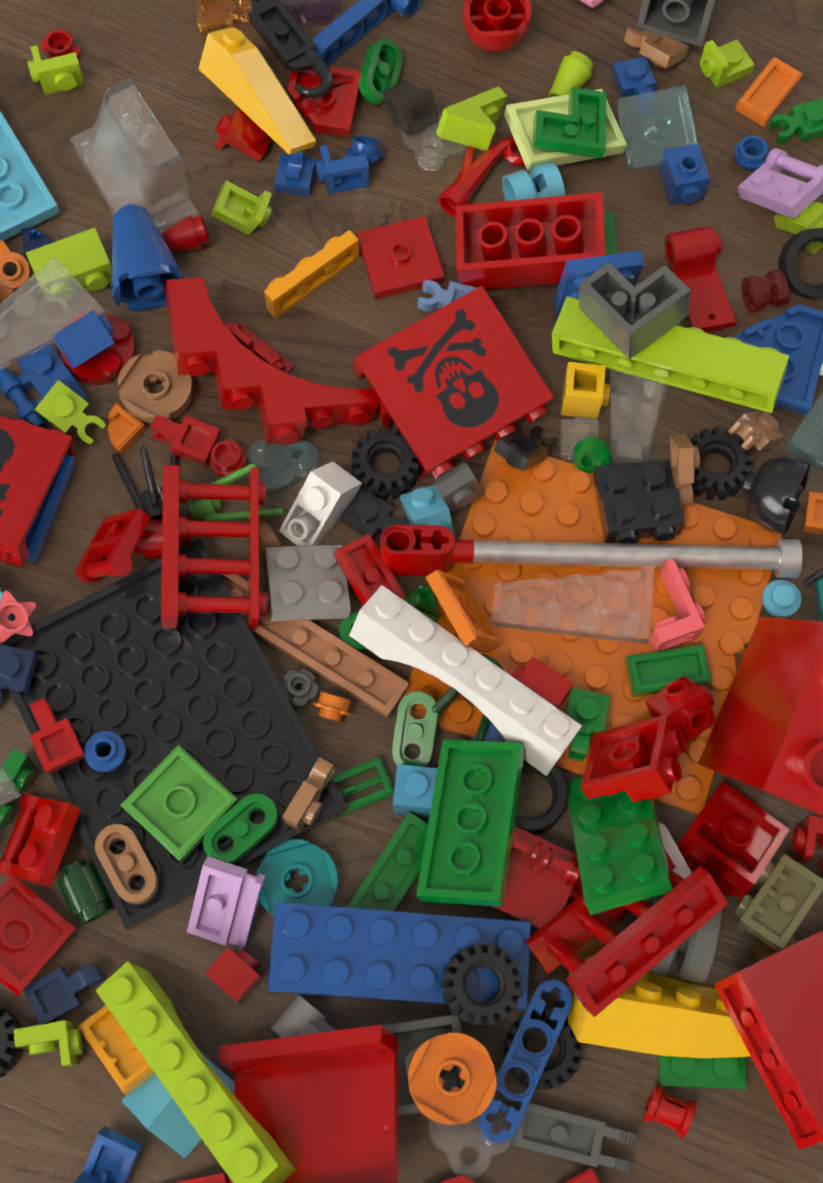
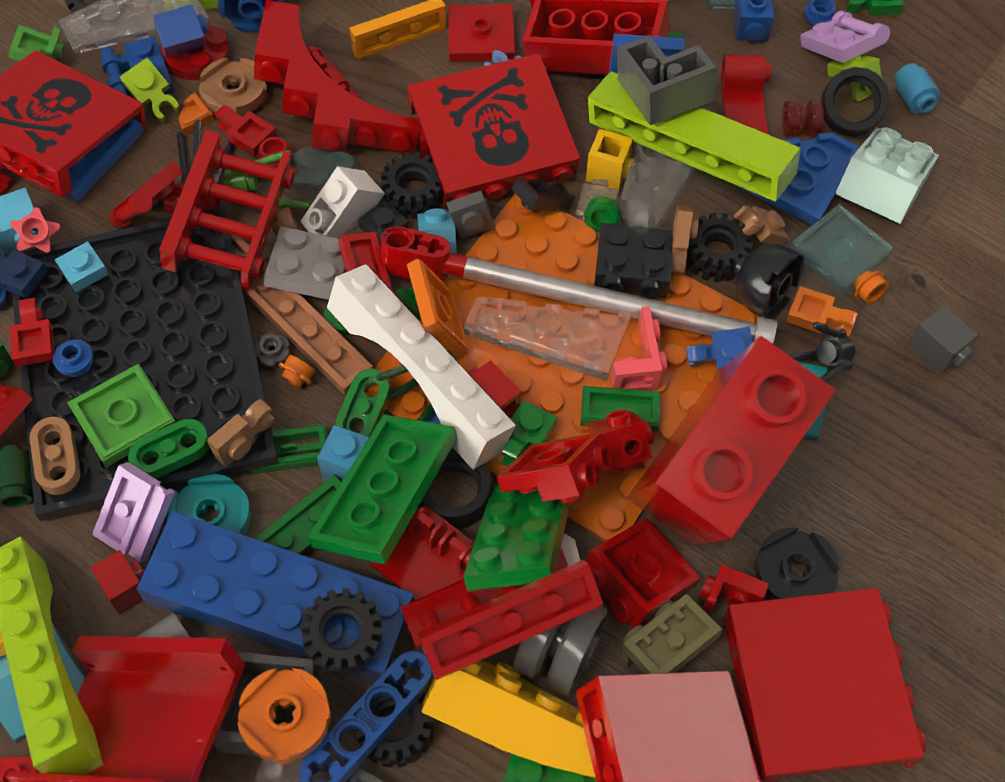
camera: 15 degrees right, 10 degrees down
(75, 645) = (81, 266): none -> medium azure plate
(759, 584) = (723, 349): none -> blue plate

